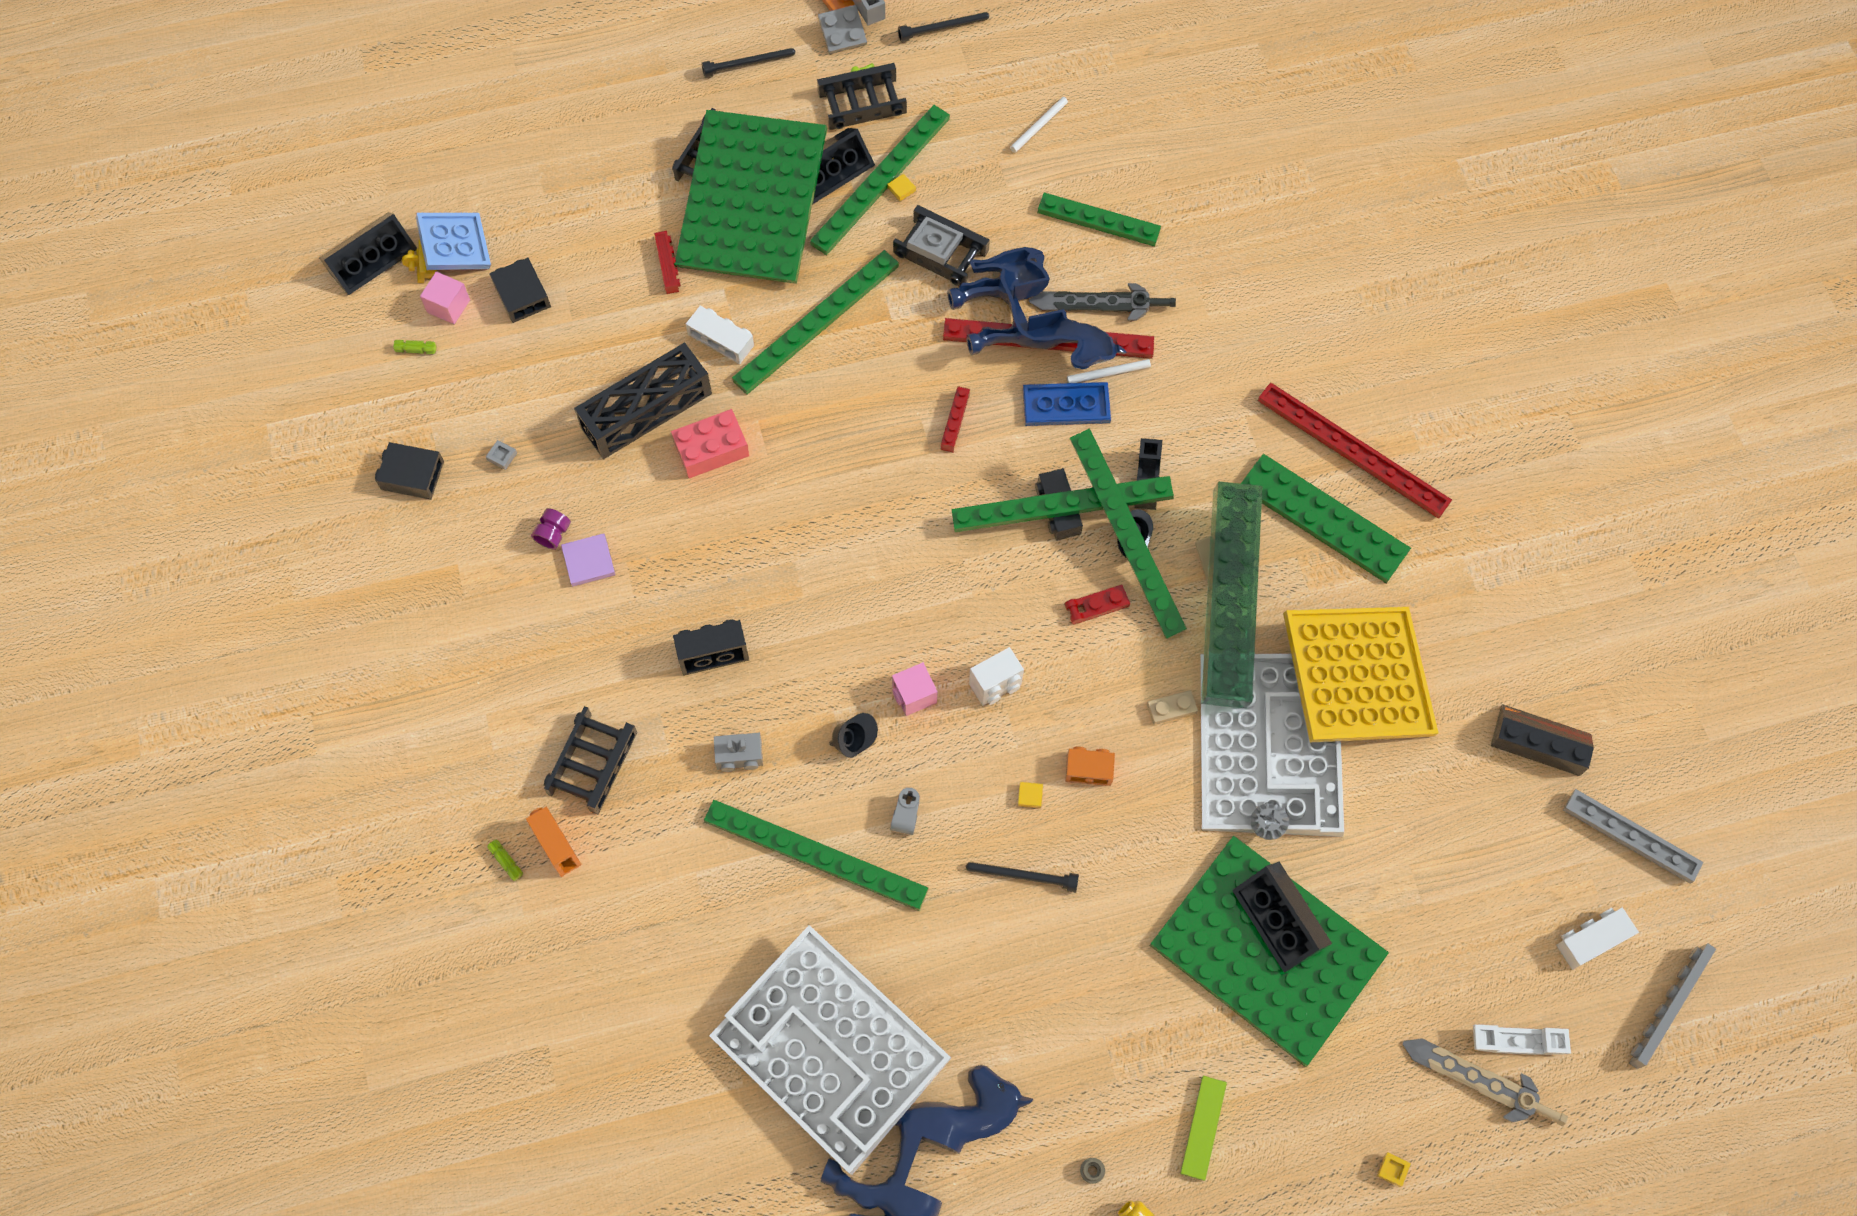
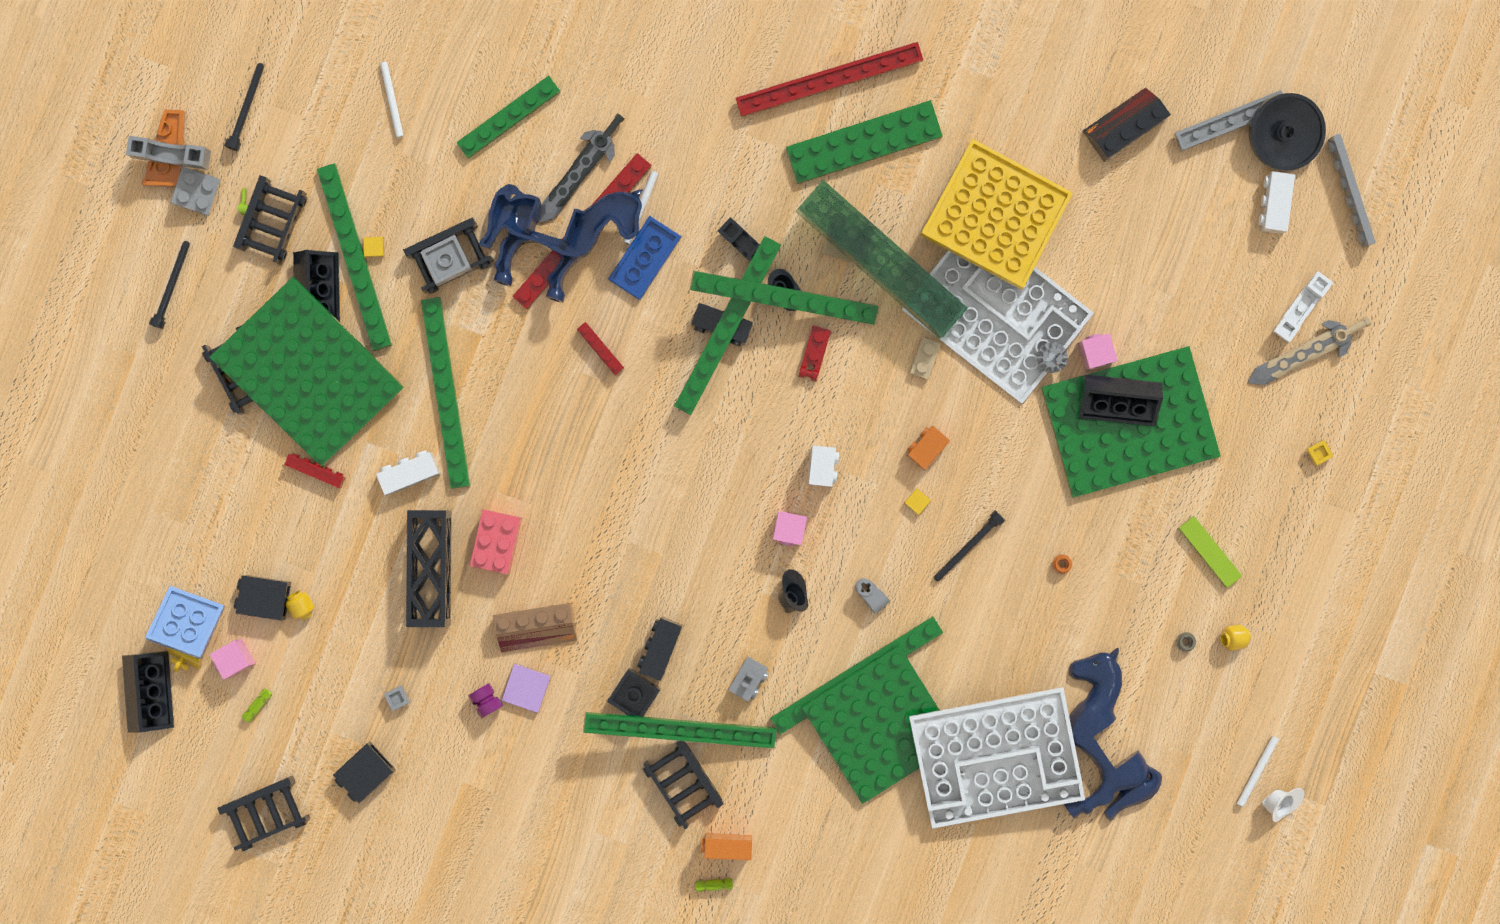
camera: 50 degrees left, 20 degrees up
(316, 392) = (249, 801): none -> black fence
(533, 322) = (300, 605): none -> yellow head
(642, 716) = (679, 730): none -> green plate
(648, 654) = (633, 694): none -> black brick
(653, 528) = (535, 627): none -> medium nougat slope
(771, 895) = (869, 722): none -> green plate
(1075, 973) = (1068, 564): none -> orange plate
(1310, 862) = (1097, 351): none -> bright pink head
(1671, 895) = (1287, 131): none -> black dish

